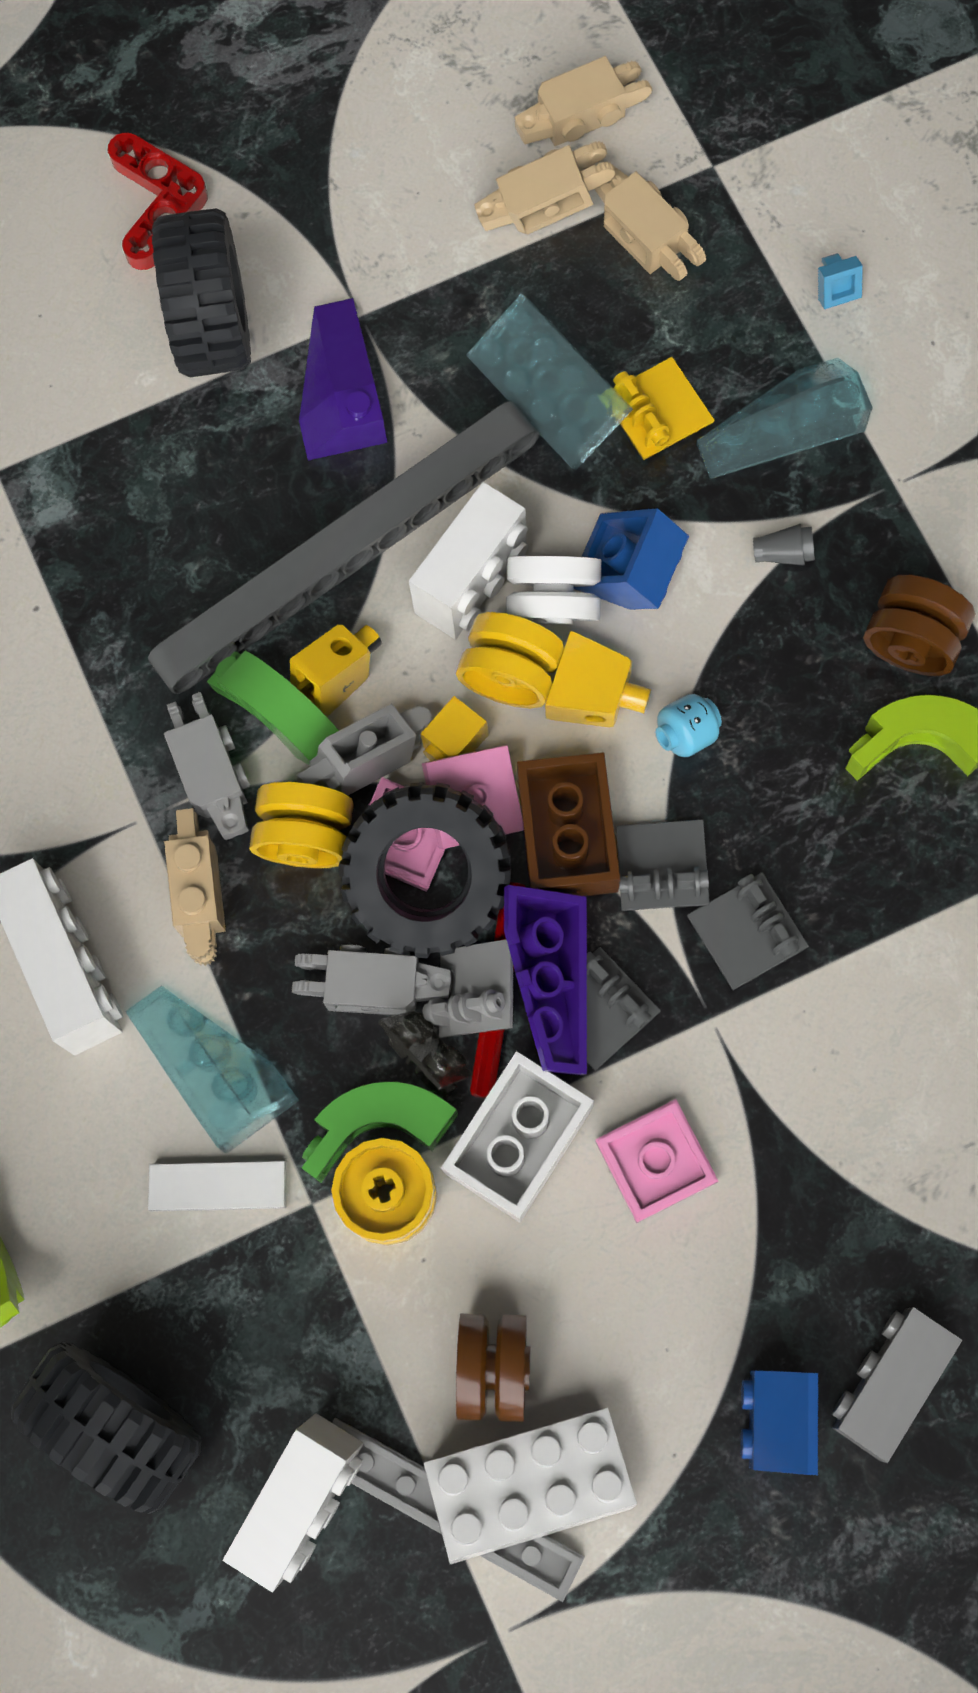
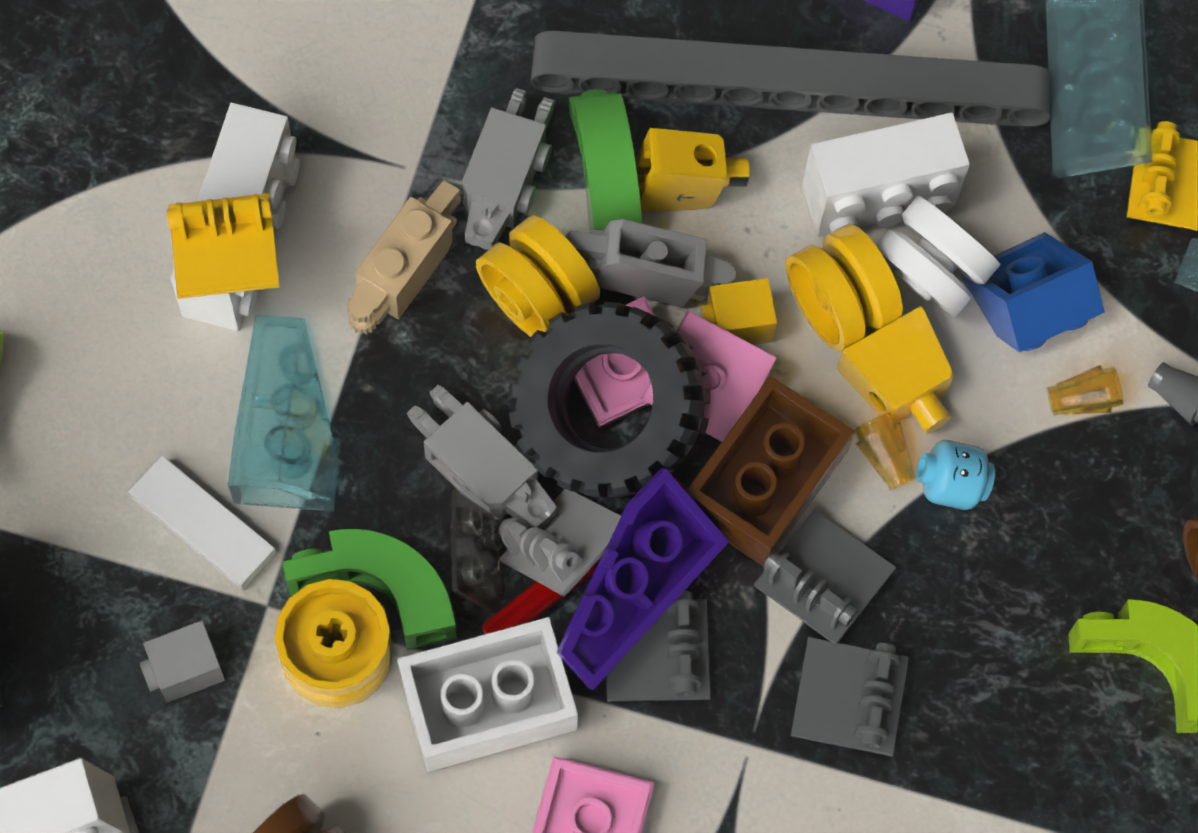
camera: 30 degrees right, 5 degrees down
(70, 987) = (223, 245): none -> yellow hinge
(291, 1295) = (181, 662): none -> light grey brick
(628, 746) = (886, 450): none -> clear yellow cone
(724, 596) = (1086, 393): none -> clear yellow cone

